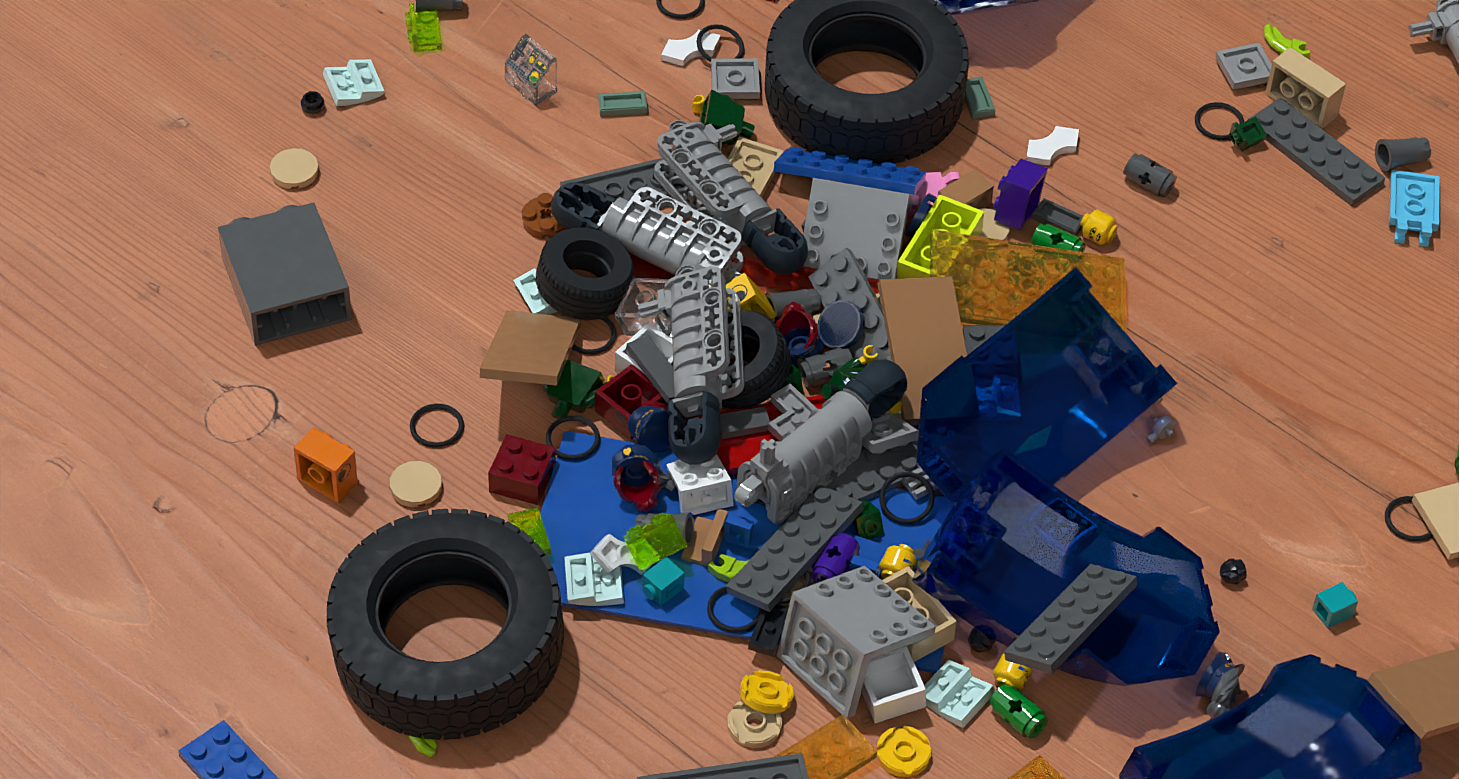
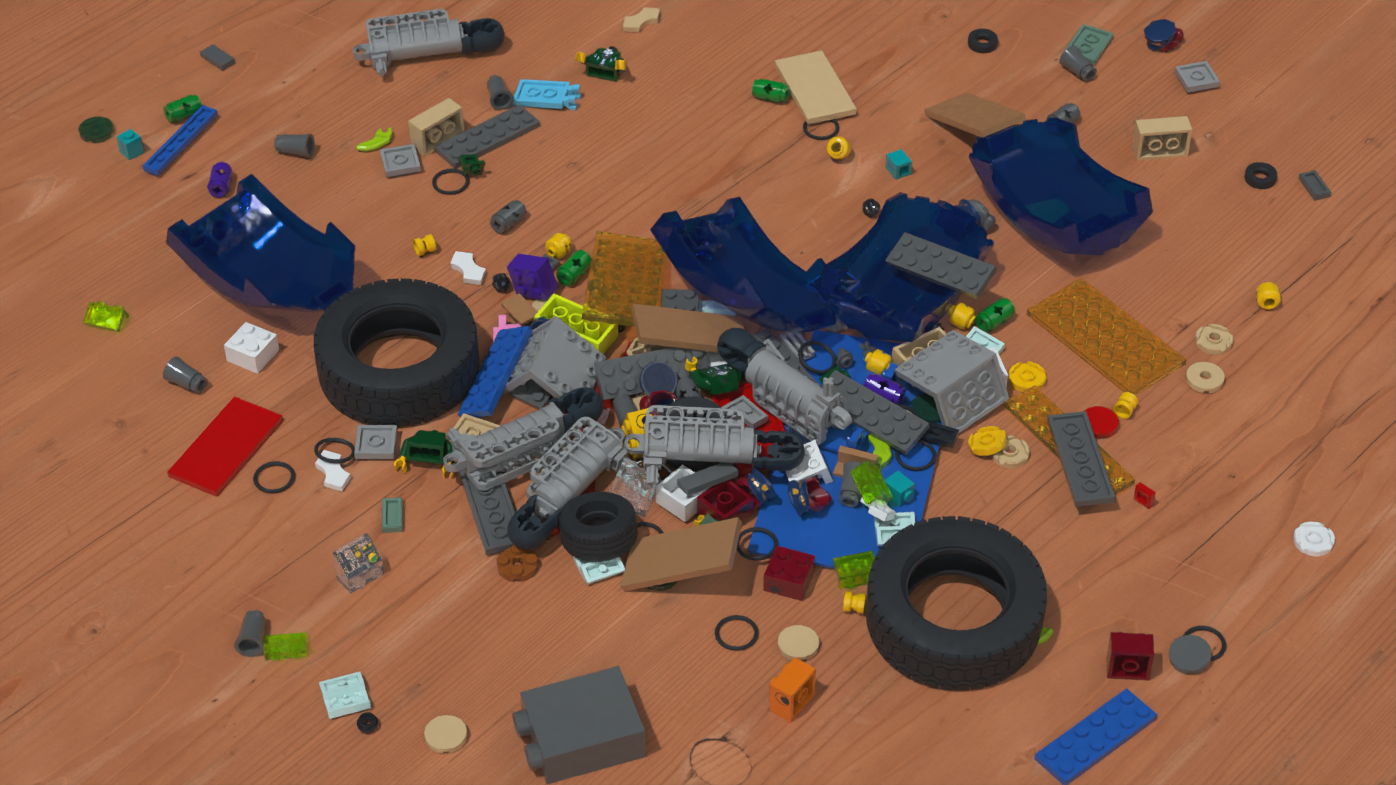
camera: 85 degrees left, 5 degrees down
(902, 526) = (844, 358): none -> dark grey plate
(1084, 98) = (424, 245): none -> yellow wheel
(1353, 529) = (834, 145): none -> yellow head

